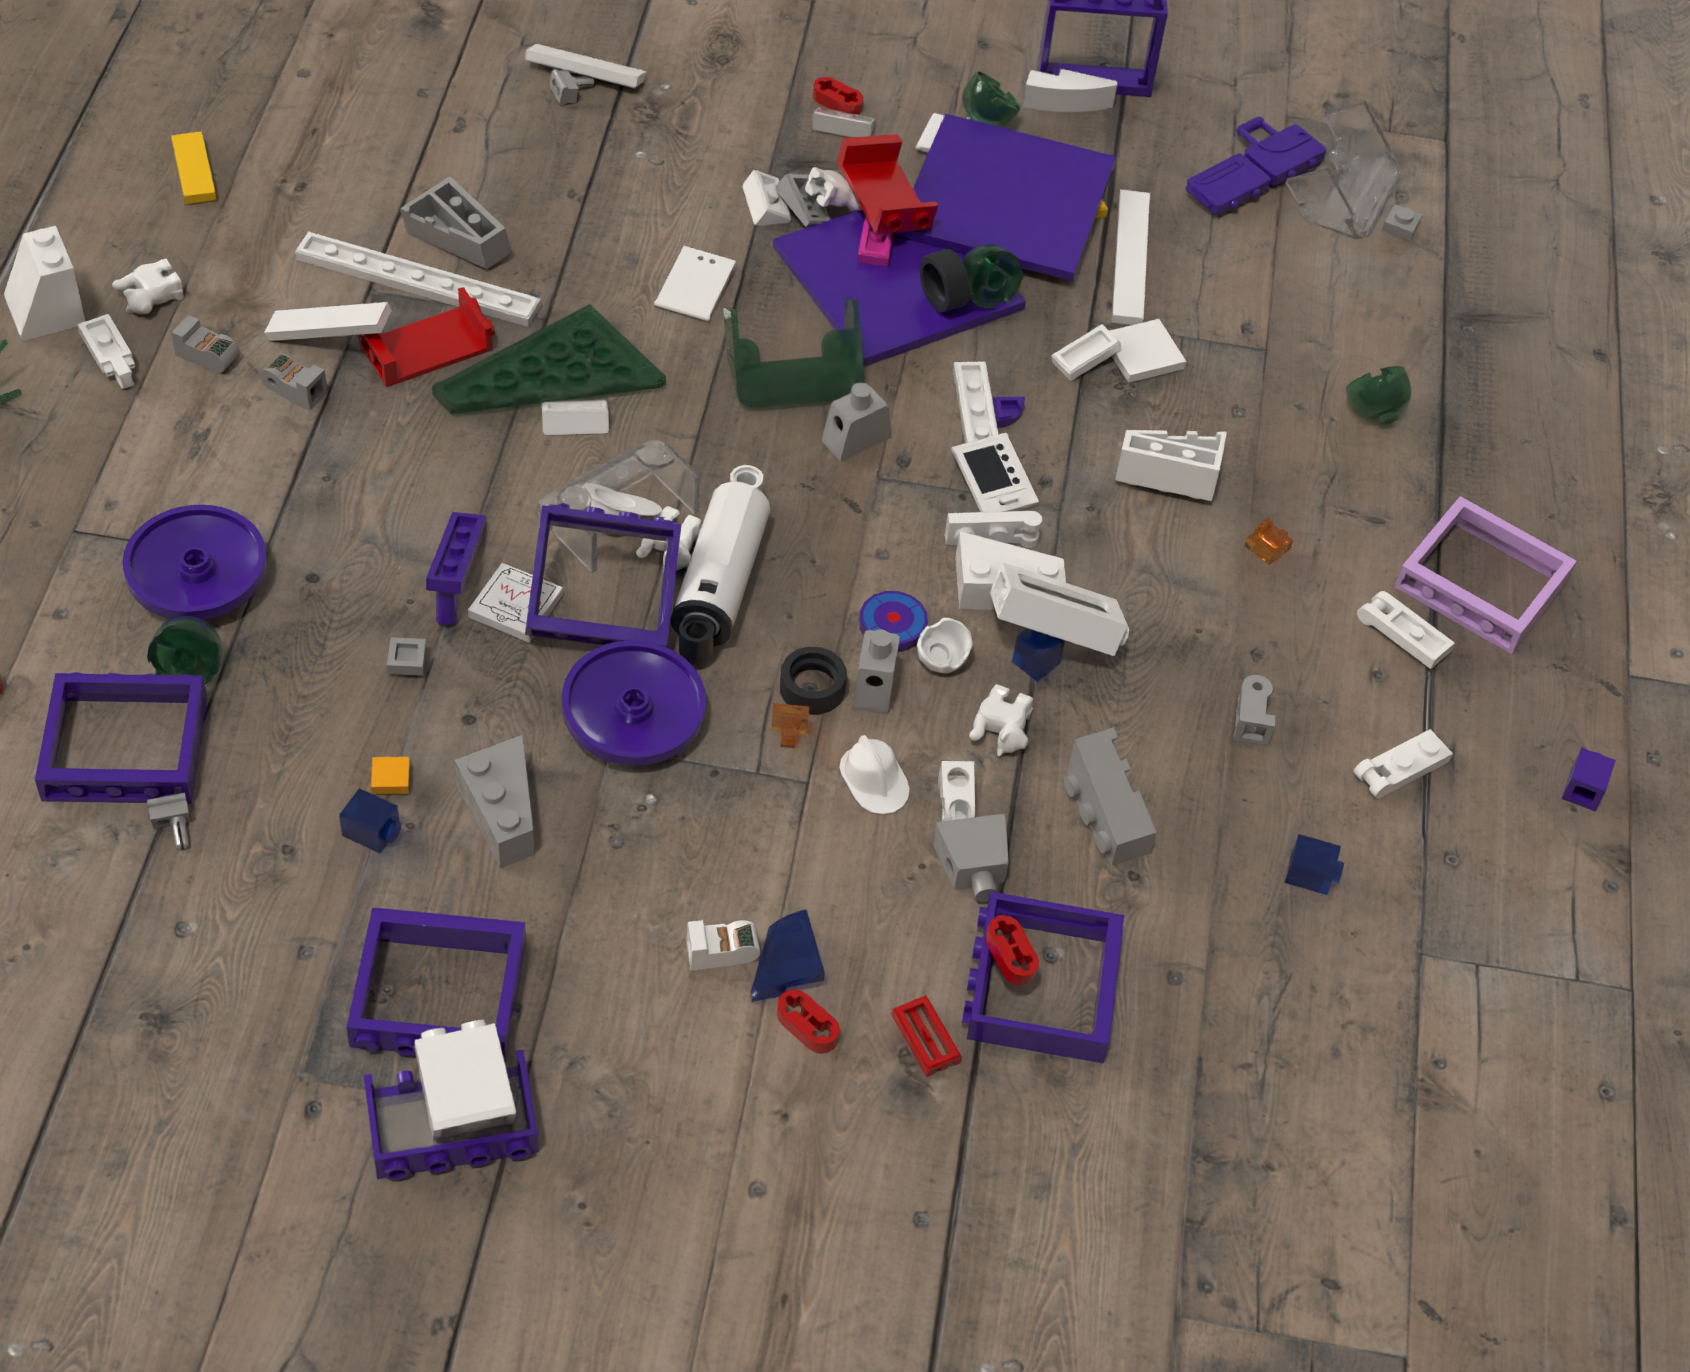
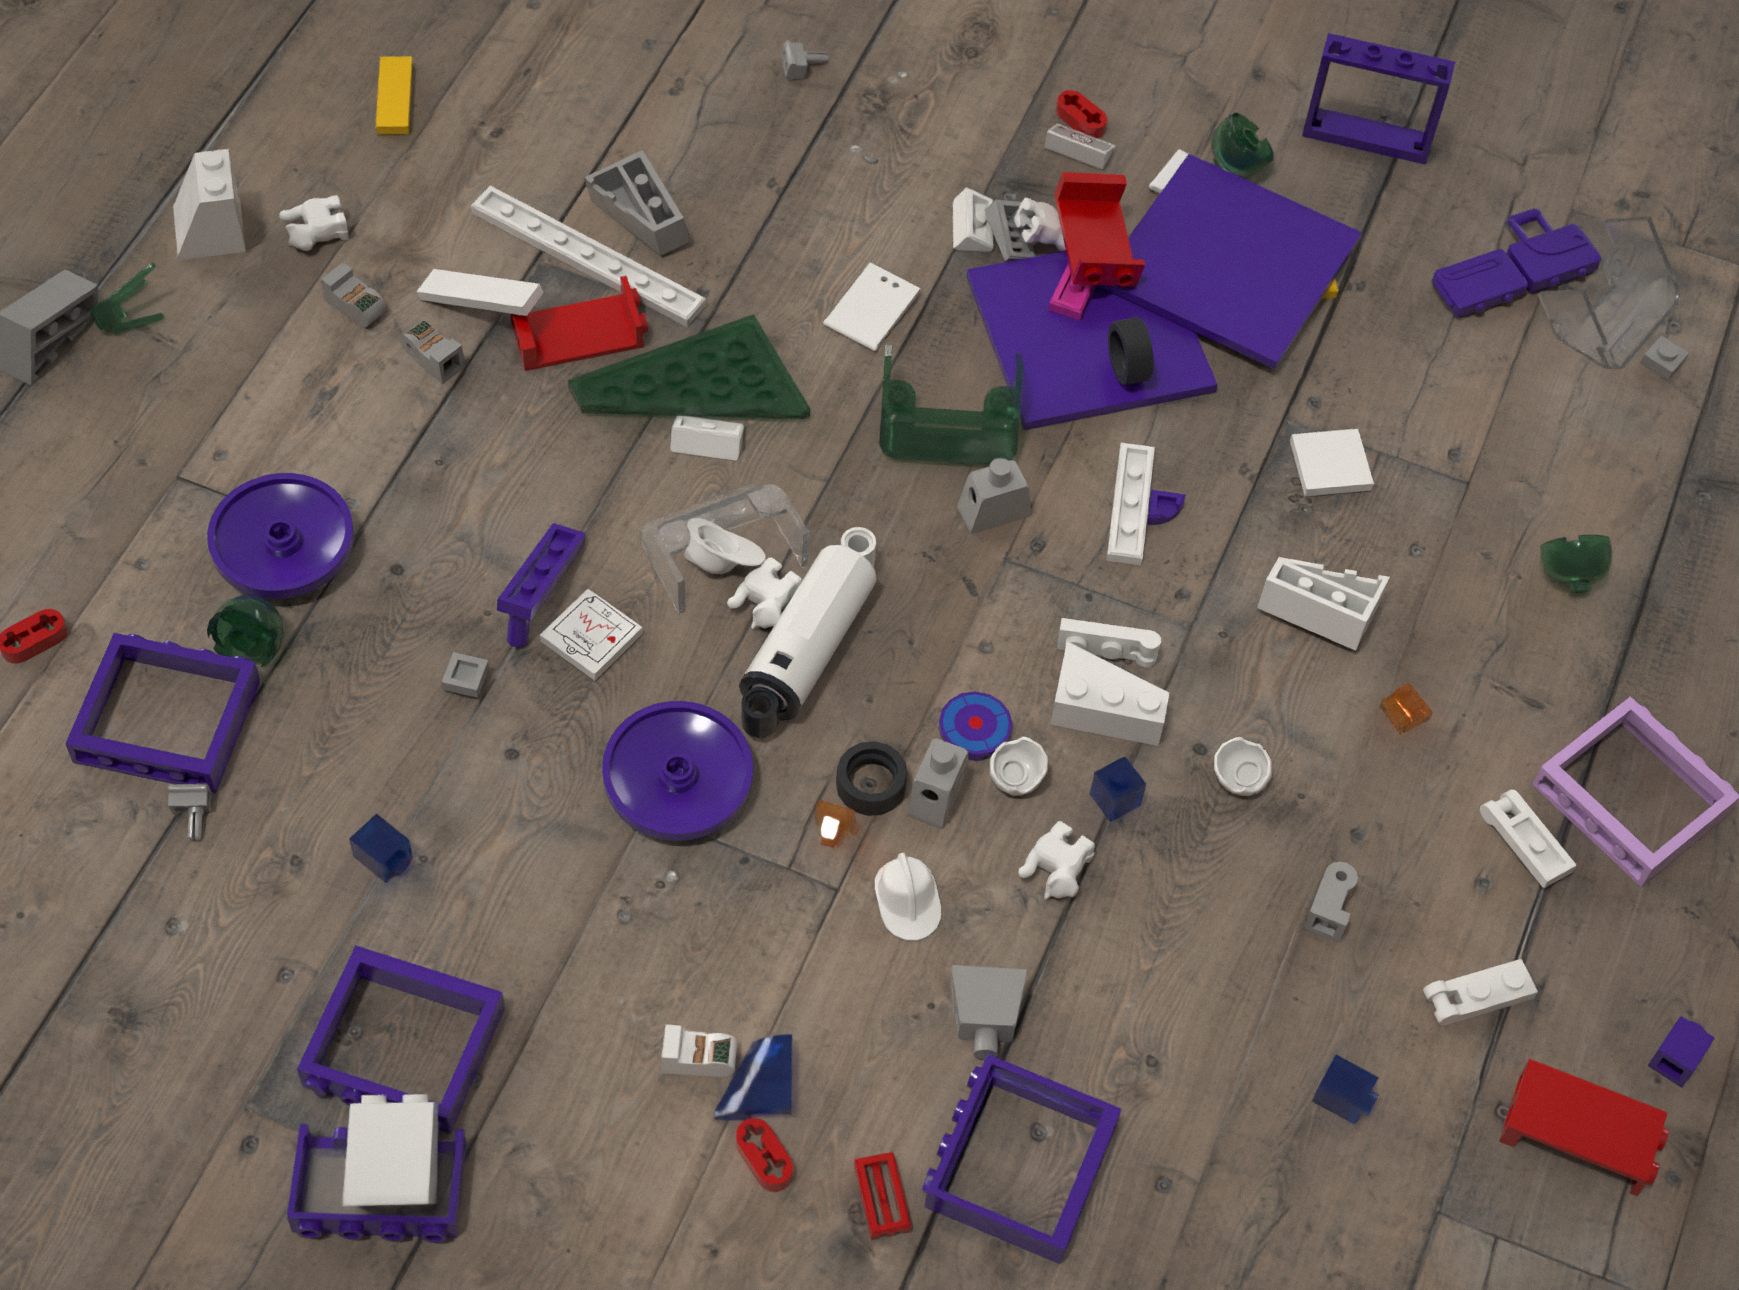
camera: 15 degrees right, 5 degrees up
(108, 349) = (258, 284): white hinge -> none
(390, 775) = (416, 801): light orange tile -> none
(498, 798) = (516, 848): light grey wedge -> none
(585, 65) = (823, 39): white tile -> none
(623, 524) = (681, 566): dark purple window -> none
(957, 792) = (986, 933): white leg -> none
(992, 274) = (1182, 352): clear green cylinder -> none
(995, 474) = (1128, 580): white container -> none
(1016, 948) = (981, 1127): red beam -> none
(1059, 609) = (1147, 751): white piece -> none
(1068, 92) = (1332, 147): white slope -> none
(1086, 352) = (1267, 455): white tile -> none
(1106, 798) = (1143, 973): light grey wedge -> none
(1130, 258) = (1347, 351): white tile -> none
(1145, 611) = (1242, 767): none -> white hair
(1526, 850) = (1587, 1122): none -> red panel

